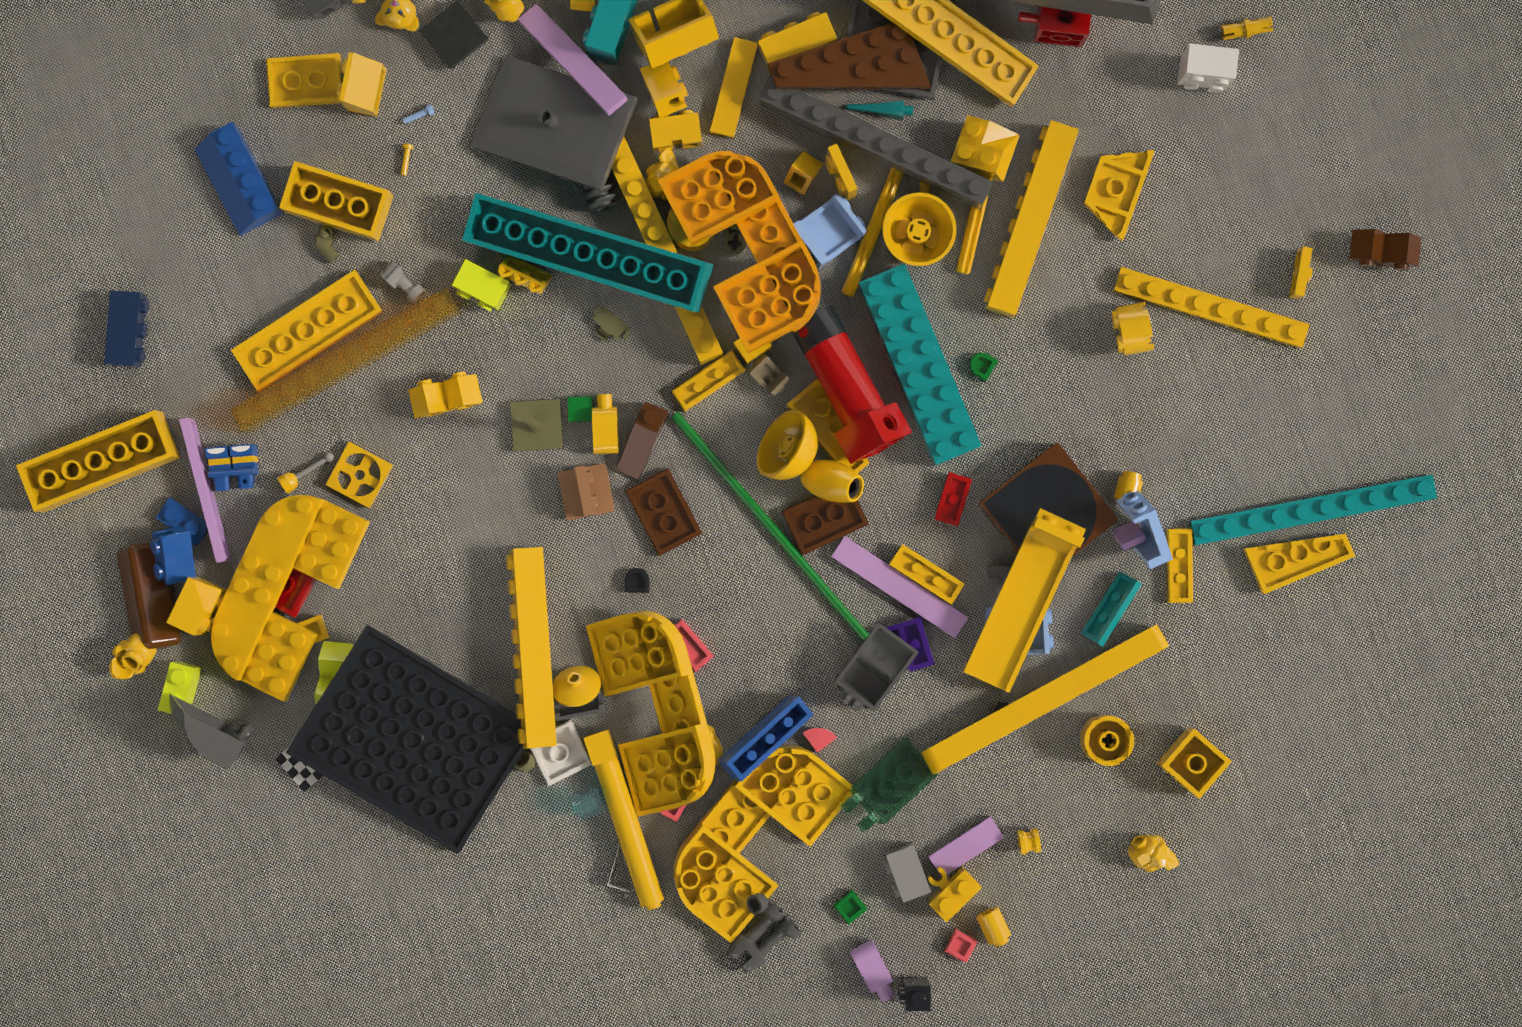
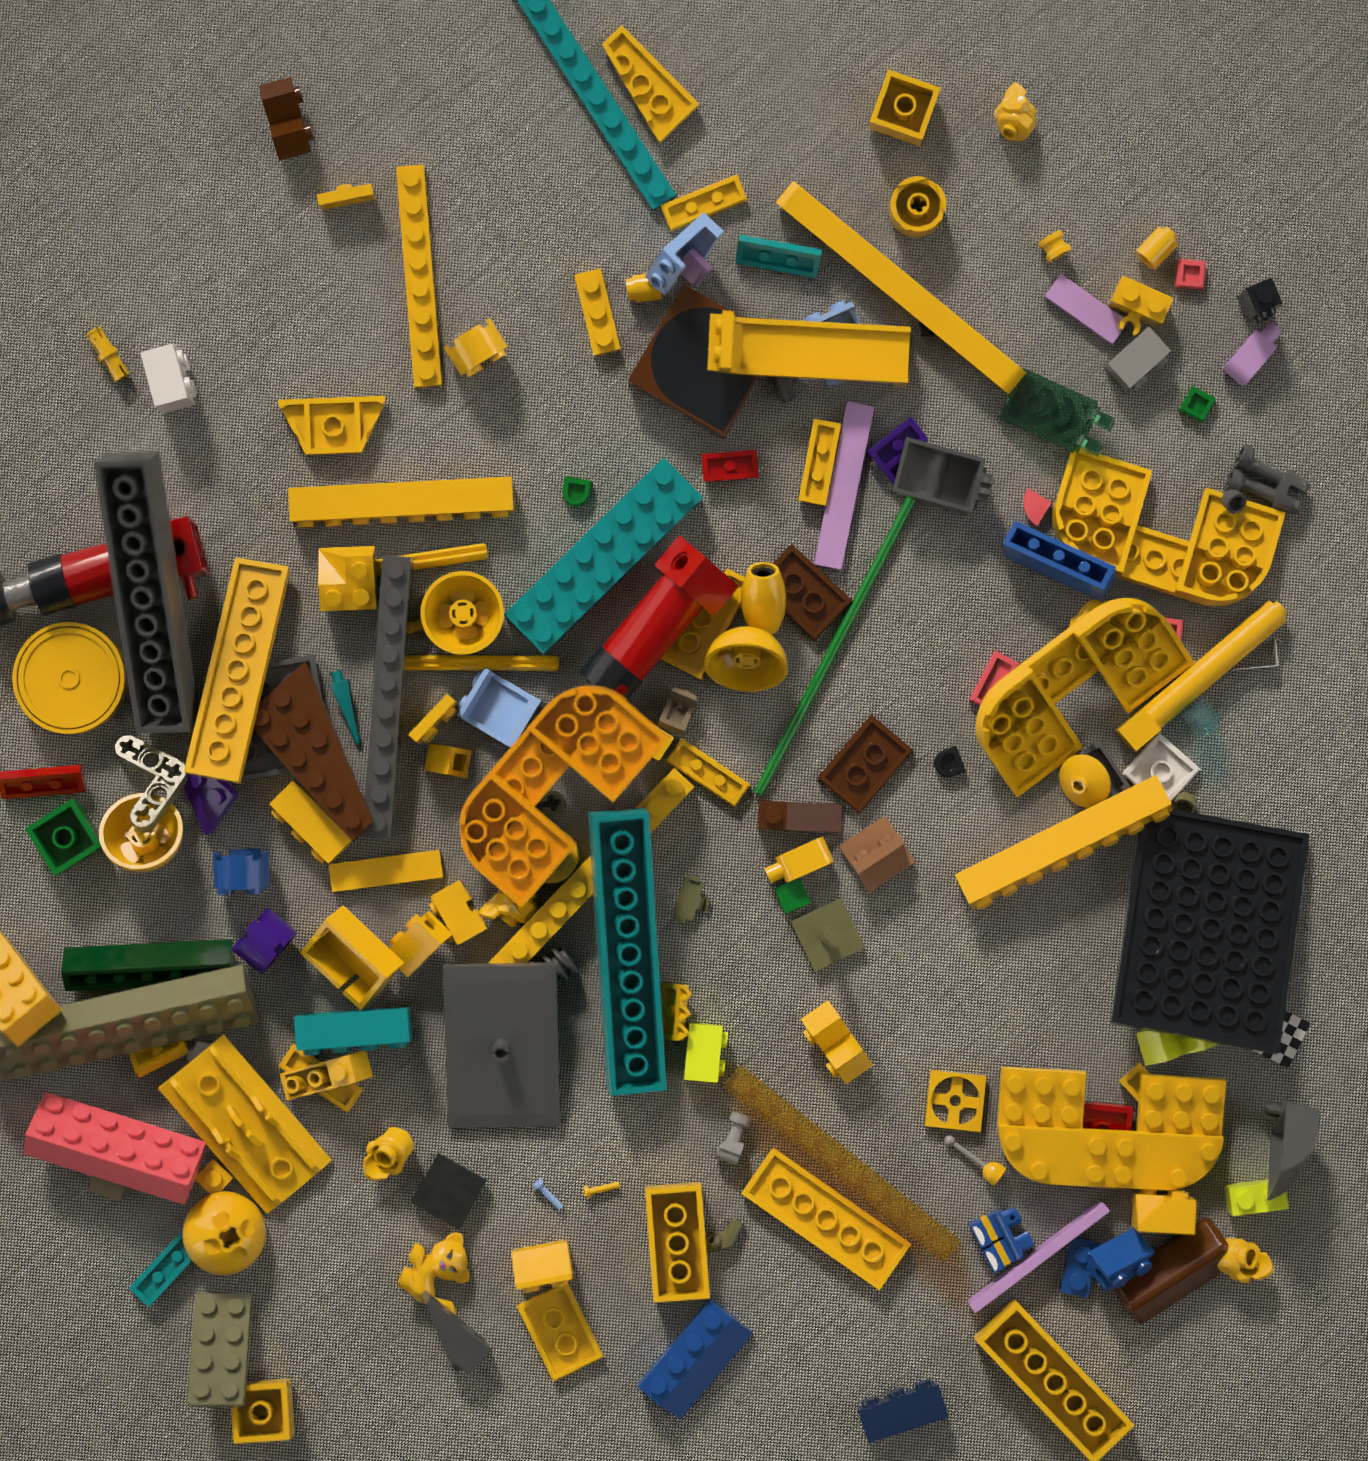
camera: 115 degrees left, 0 degrees up
(573, 59) = (427, 1051): lavender tile -> none
(1123, 441) = (597, 312): none -> yellow plate

